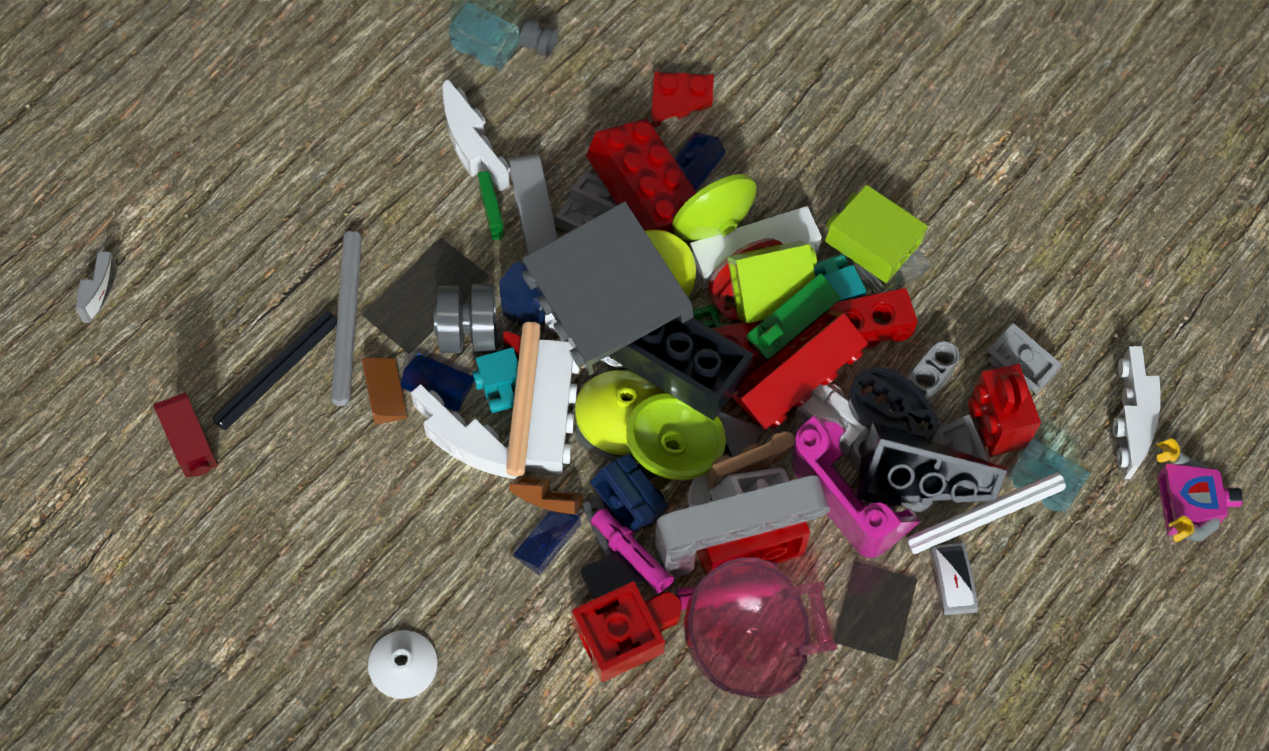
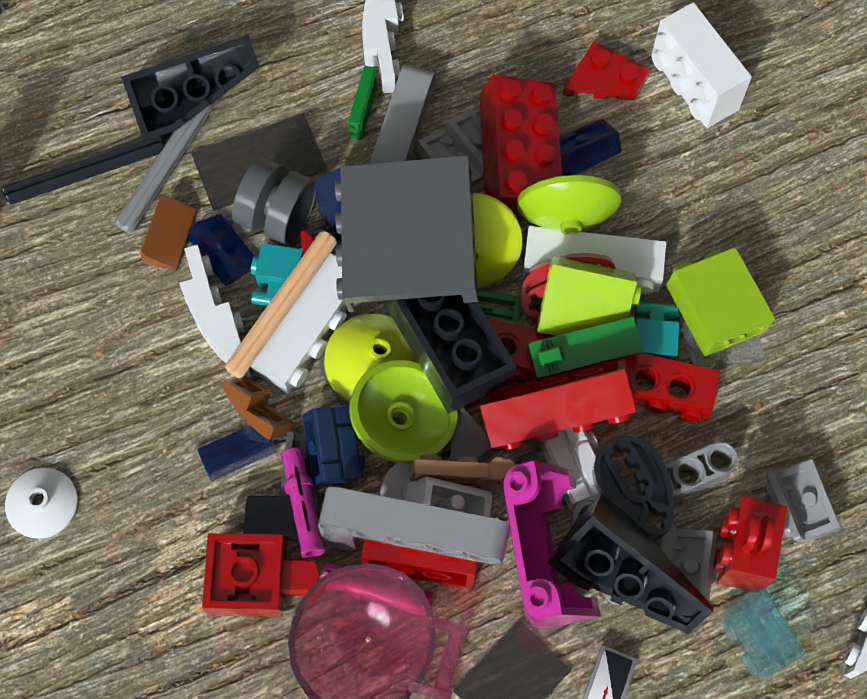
camera: 30 degrees right, 5 degrees up
(327, 264) = (181, 88): none -> black wedge
(755, 53) = (700, 65): none -> white brick
(986, 513) = (675, 641): white axle -> none

